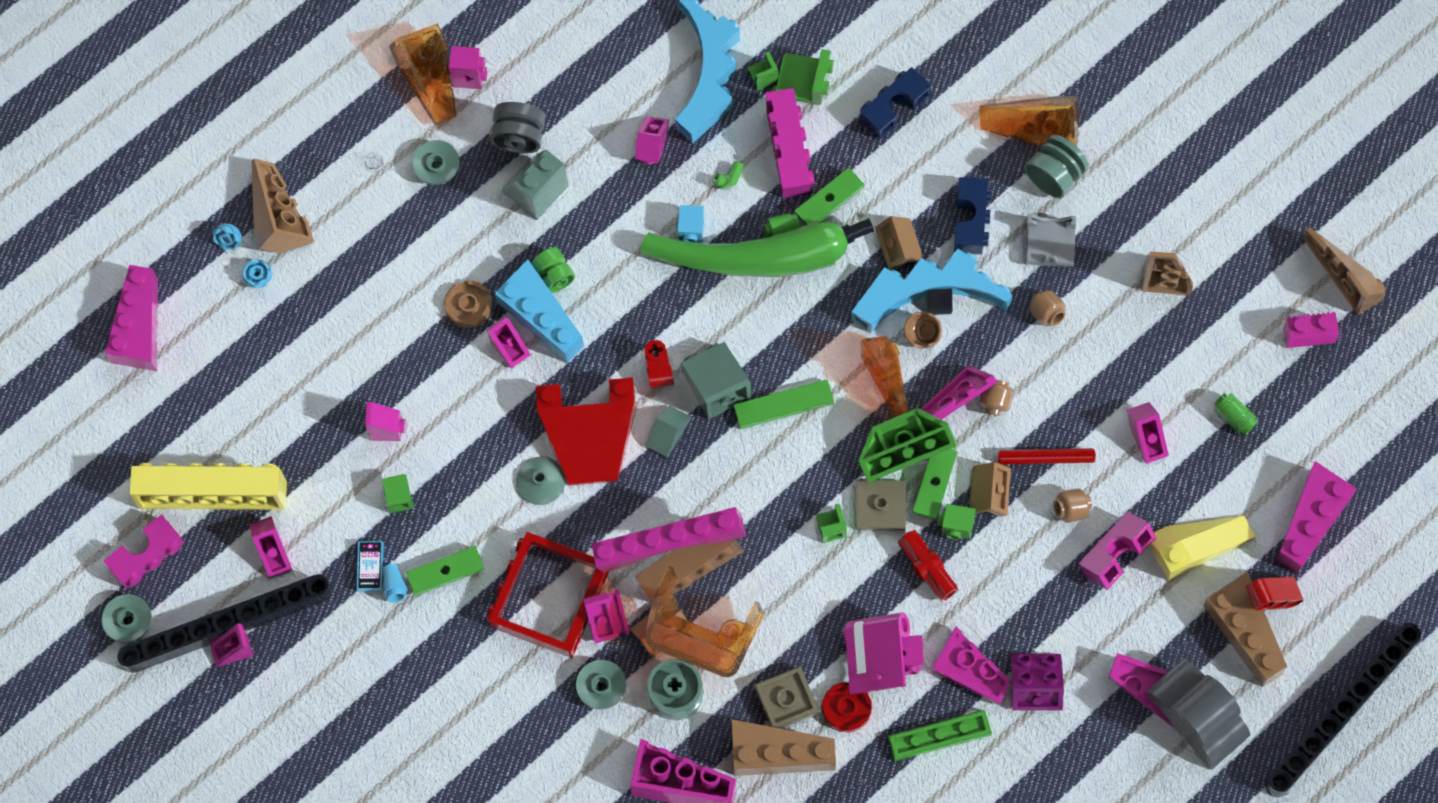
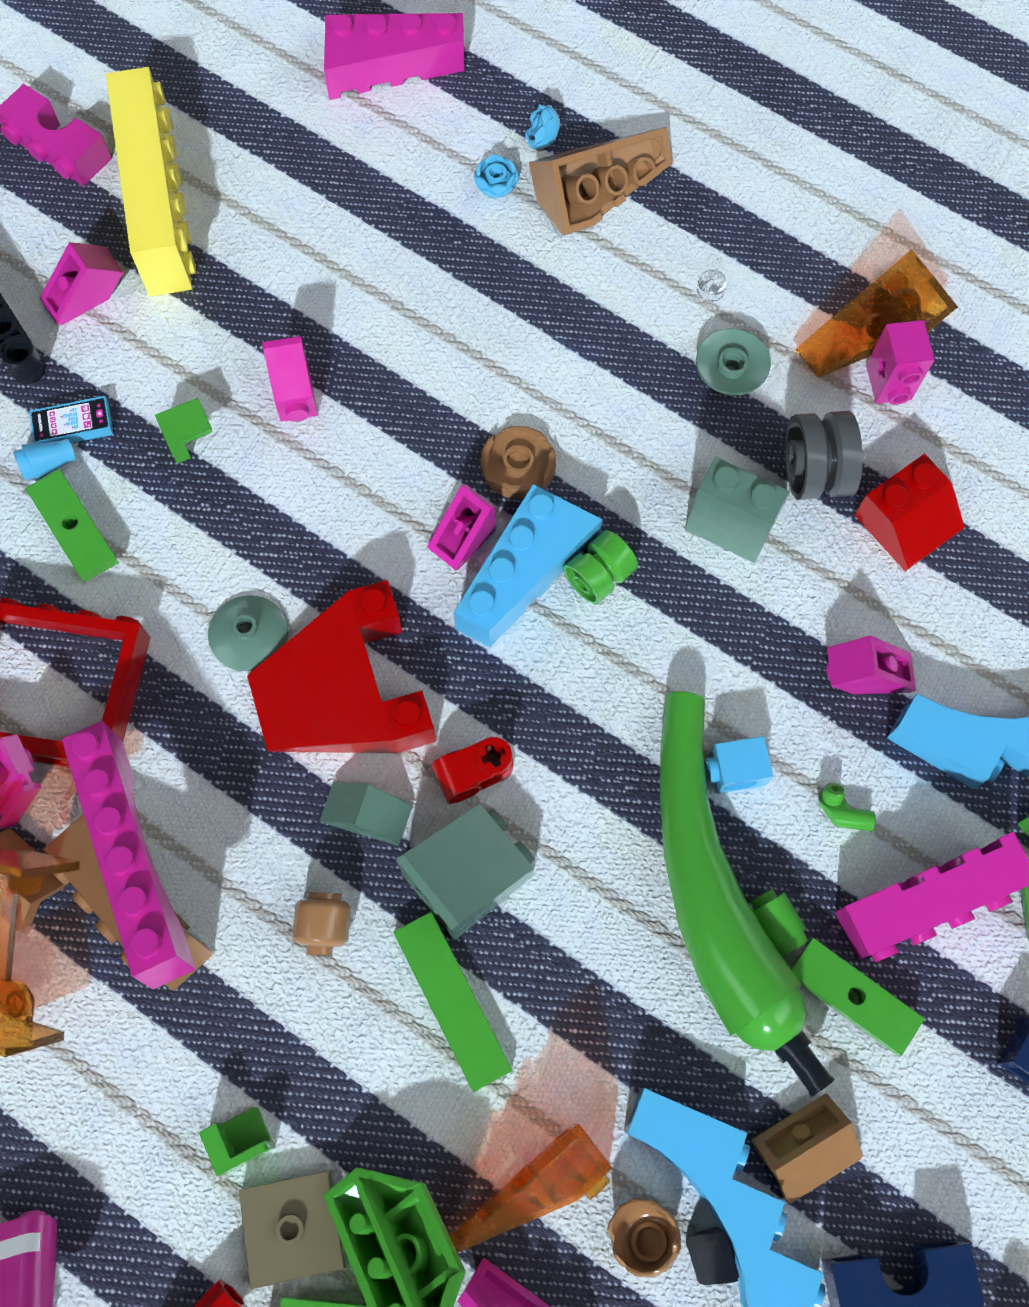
camera: 70 degrees right, 0 degrees up
(562, 89) = (912, 512): none -> red slope
(726, 461) = (321, 922): none -> medium nougat head

